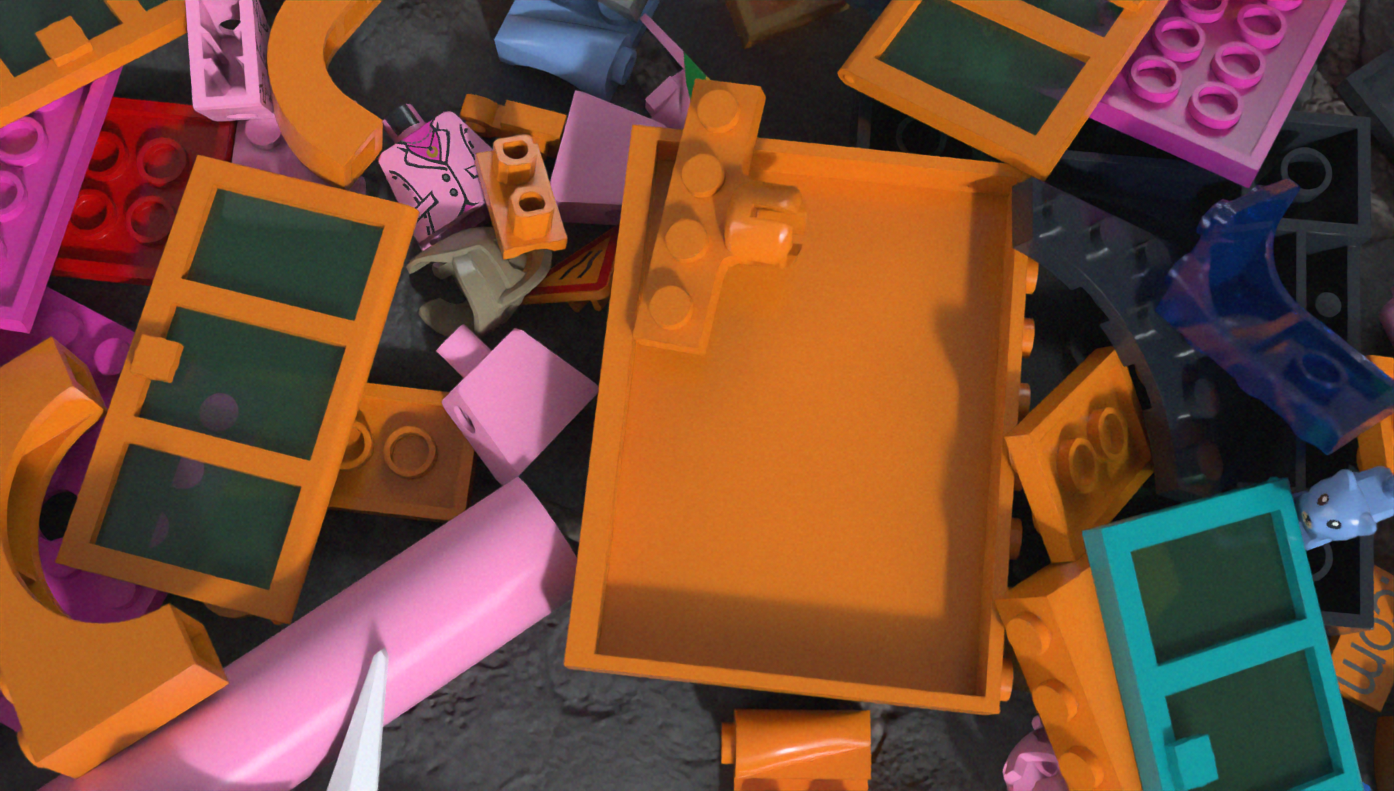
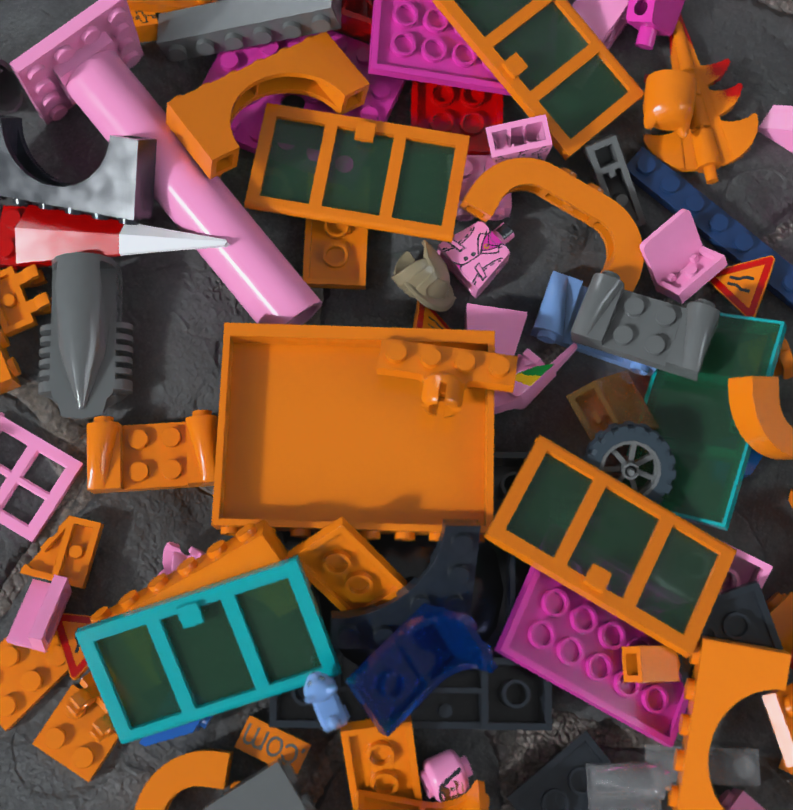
camera: 85 degrees right, 0 degrees up
(511, 398) = (362, 295): bright pink torso -> none
(515, 119) = (506, 295): orange plate -> none
(519, 197) = (462, 288): orange hips -> none

